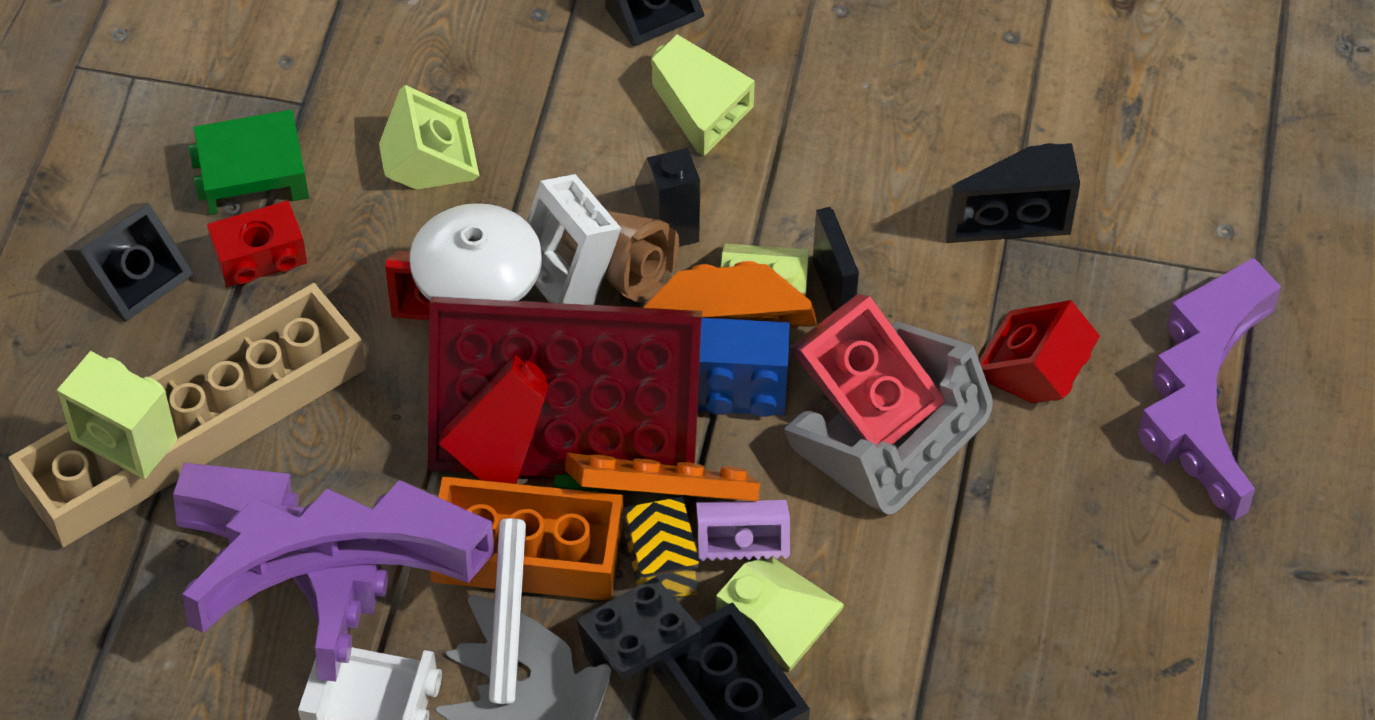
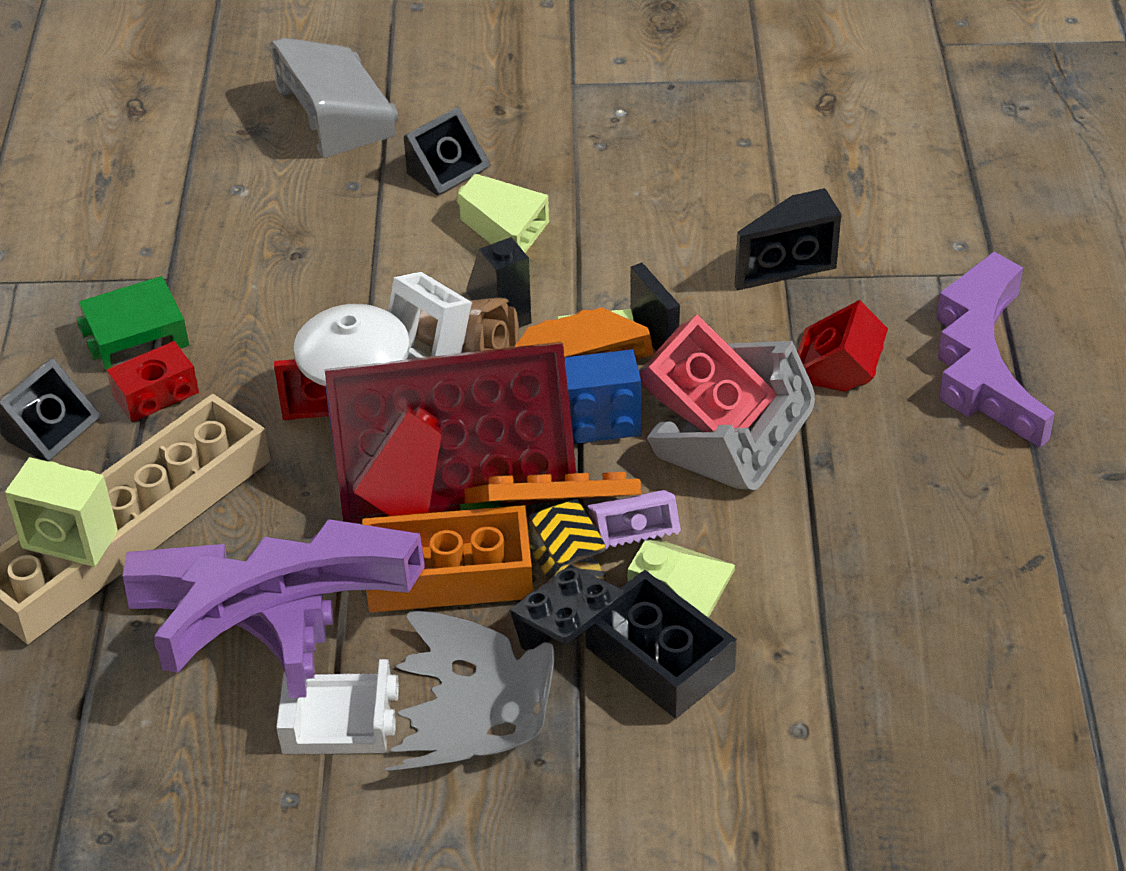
camera: 10 degrees left, 10 degrees down
(427, 142) = (282, 285): yellowish green slope -> none
(507, 611) = (446, 614): white axle -> none

